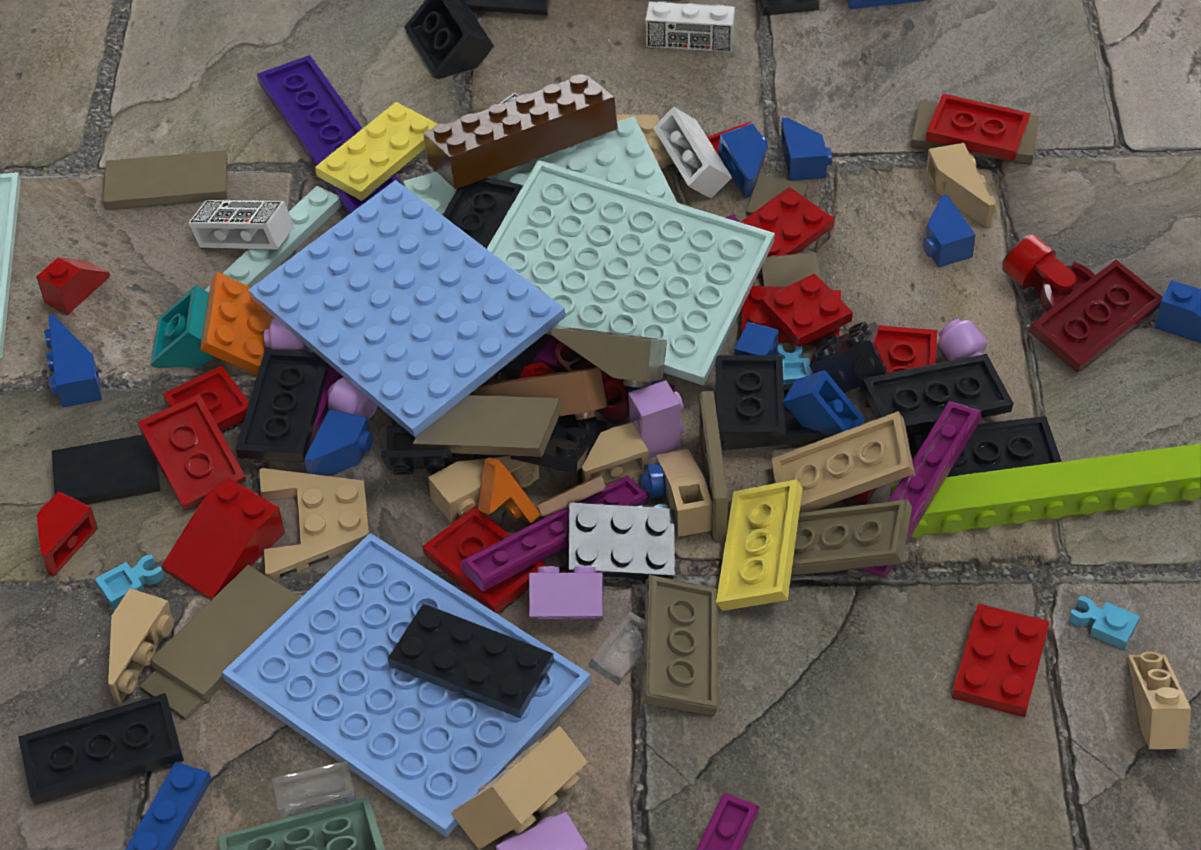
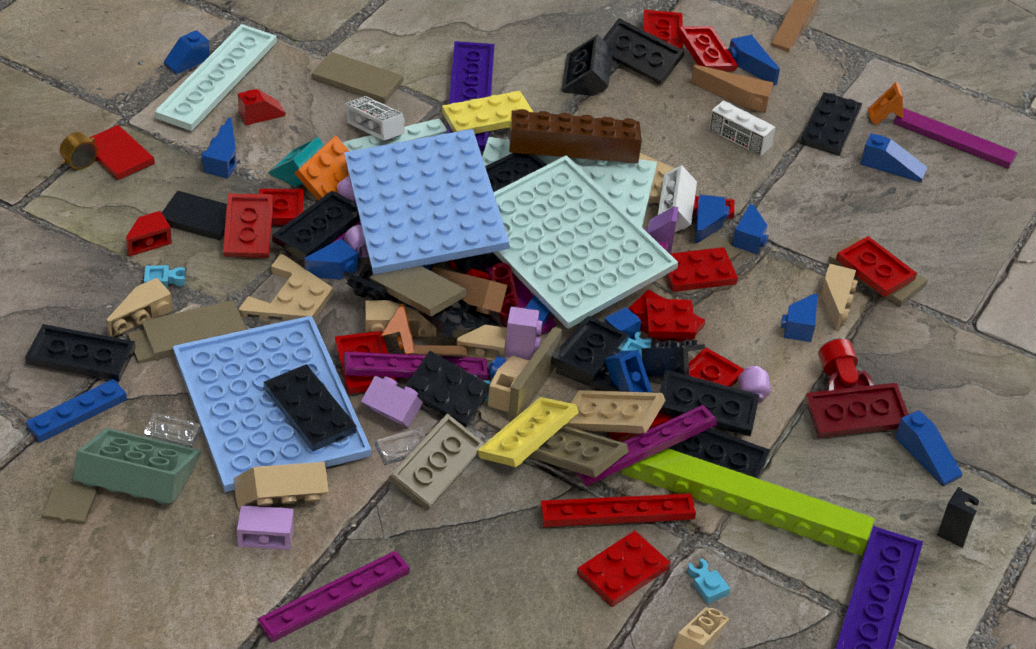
camera: 25 degrees right, 5 degrees down
(223, 538) = (231, 278): red slope -> none
(621, 356) = (520, 283): dark tan slope -> none
(711, 192) = (663, 227): none -> medium lavender slope
(788, 269) = (680, 290): dark tan sticker -> none
(936, 589) = (617, 510): none -> red plate

